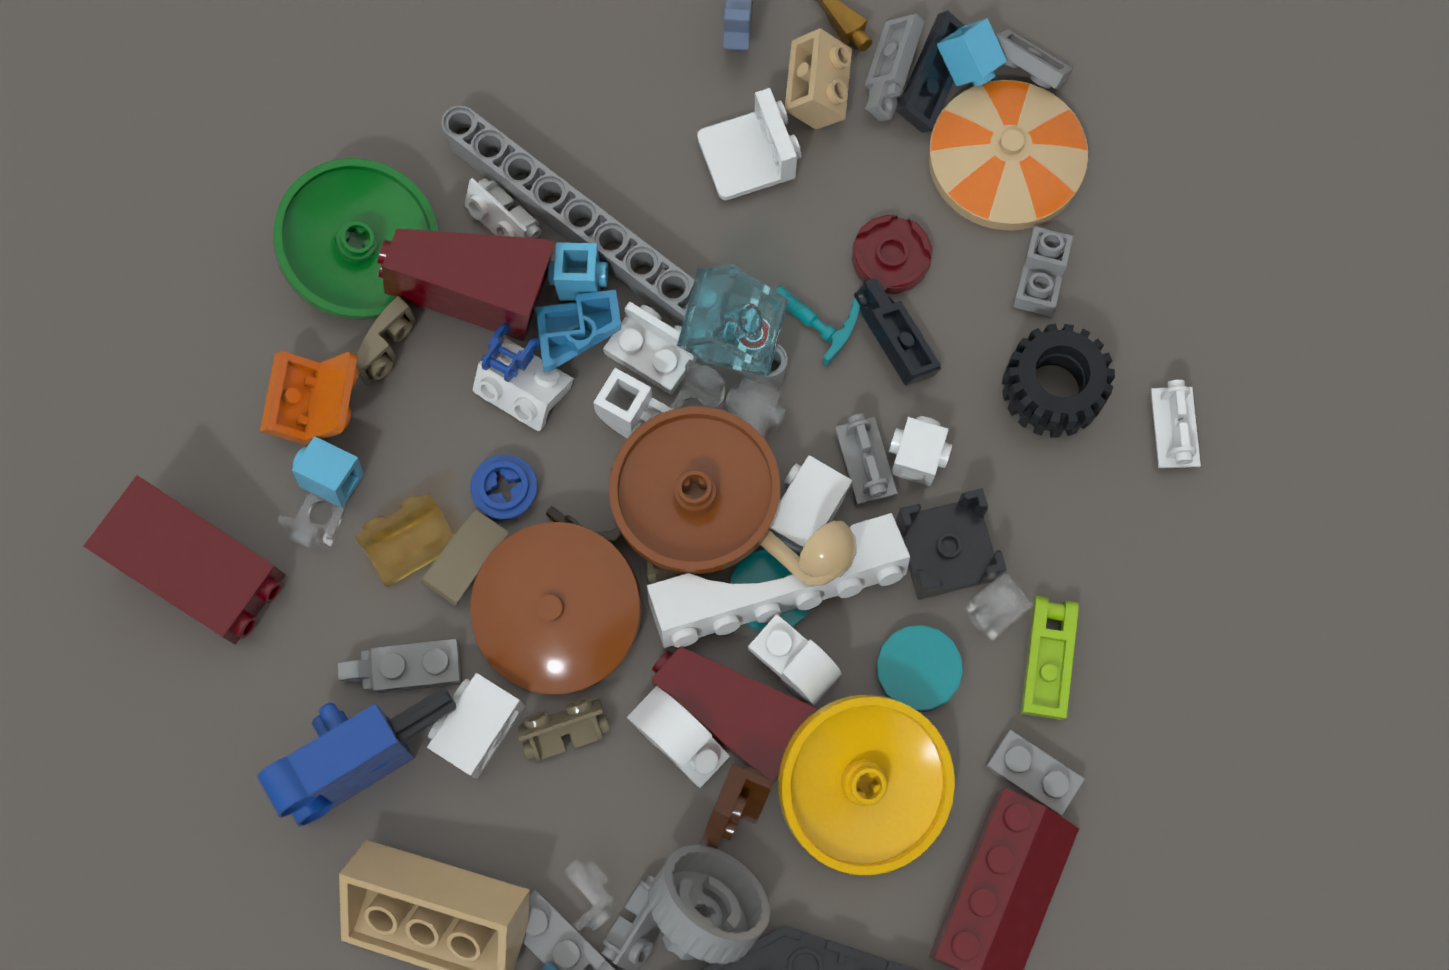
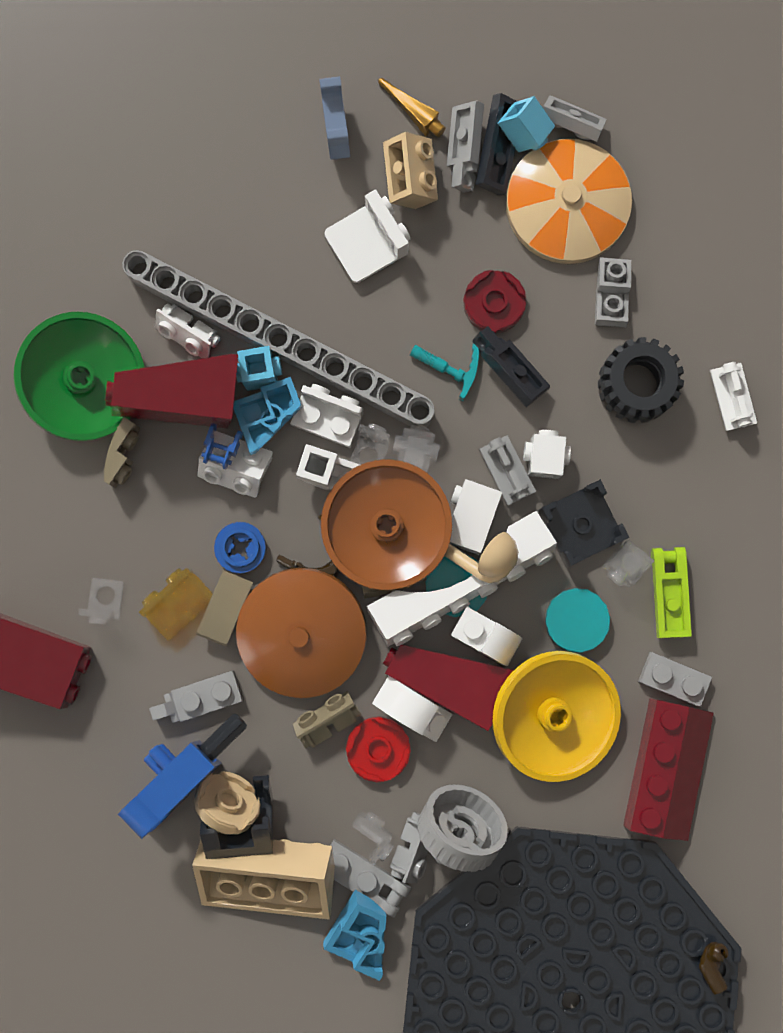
camera: 15 degrees left, 10 degrees up
(308, 397) = (76, 510): orange bracket -> none
(327, 471) = (103, 564): medium azure brick -> none
(405, 801) = (226, 803): none -> tan tile
(414, 835) = (255, 840): none -> black panel
(476, 726) = (264, 732): white brick -> none
(622, 782) = (378, 749): none -> red tile
(733, 320) = (387, 387): clear light blue slope -> none
(740, 797) = (467, 745): reddish brown bracket -> none

